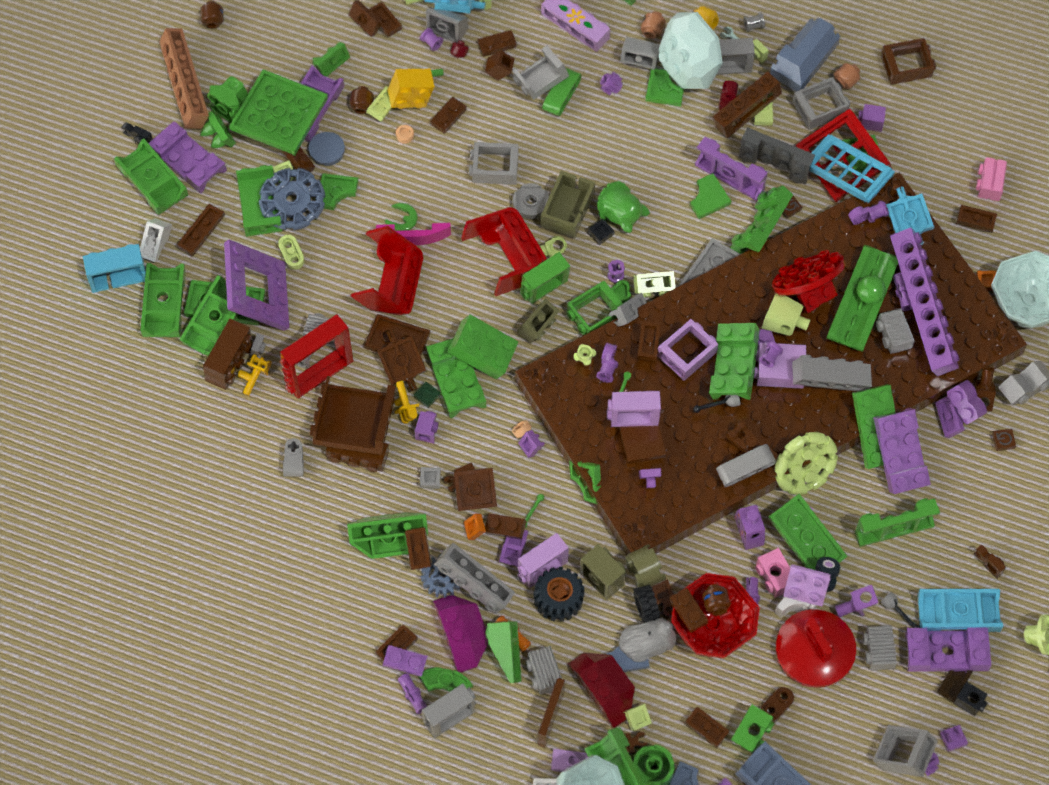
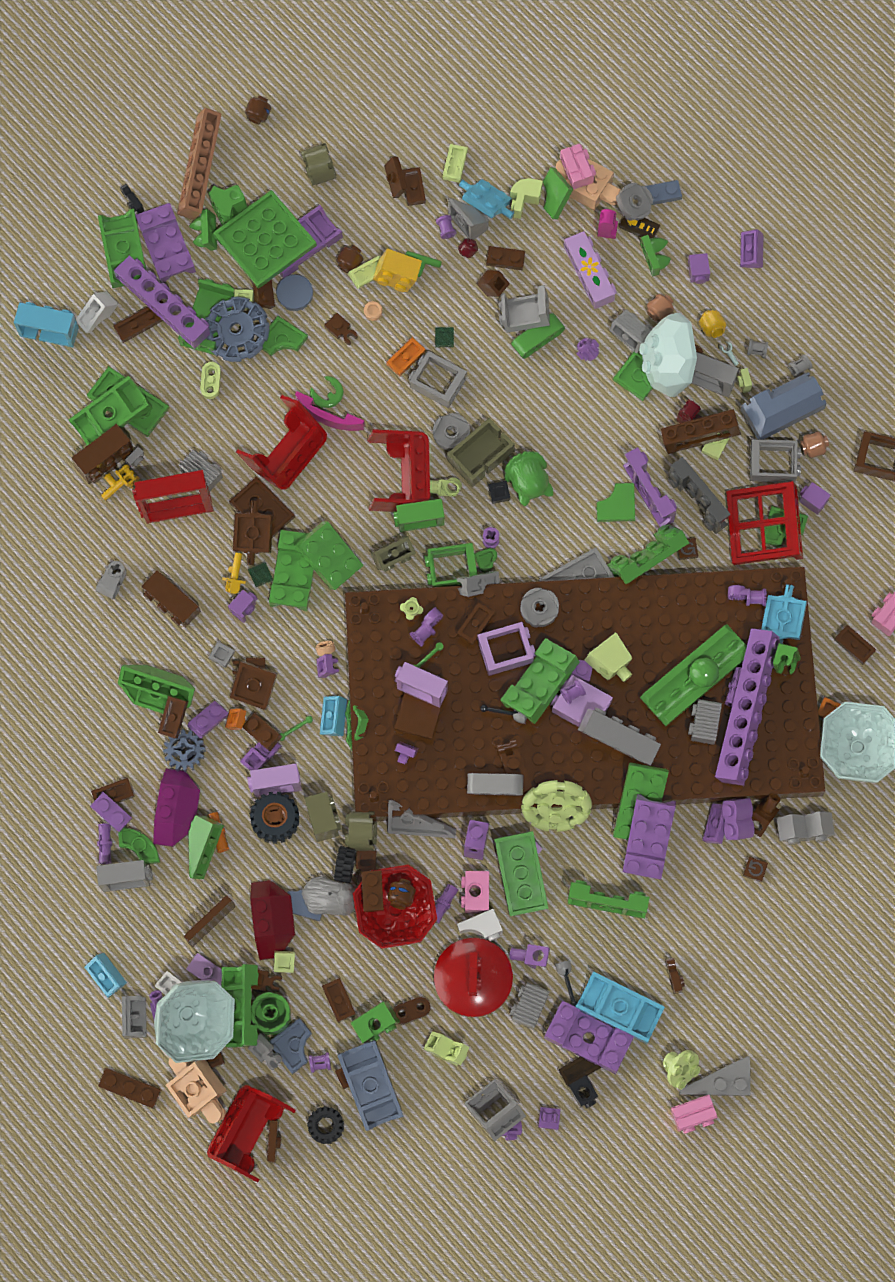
camera: 30 degrees right, 10 degrees up
(164, 317) = (67, 391): bright green piece -> none
(203, 204) = (192, 335): none -> medium lavender brick
(236, 259) = (129, 411): medium lavender plate -> none
(292, 34) = (318, 164): none -> olive brick
(332, 59) = (343, 206): bright green tile -> none
(352, 418) = (180, 567): reddish brown panel -> none
(383, 159) = (339, 327): none -> reddish brown plate
(448, 115) = (422, 310): reddish brown plate -> none
(450, 534) = (207, 719): none -> medium lavender plate
(456, 157) = (406, 357): none -> orange plate
(474, 578) = (206, 769): light grey brick -> none
(480, 128) = (444, 336): none -> clear green tile
(544, 669) = (227, 879): light grey brick -> none
(560, 484) = (333, 716): none -> medium azure slope
(654, 282) = (517, 566): yellowish green brick -> none
(689, 540) = (416, 824): none -> light grey wing
(695, 293) = (538, 618): none -> light grey plate
(797, 20) = (800, 366): none -> light grey bush
(810, 279) = (652, 634): red bracket -> none
(810, 584) = (495, 923): lavender plate -> none
(830, 722) = (446, 1049): none -> yellowish green brick
(876, 185) = (773, 570): medium azure piece -> none
(933, 245) = (786, 656): none -> bright green hinge

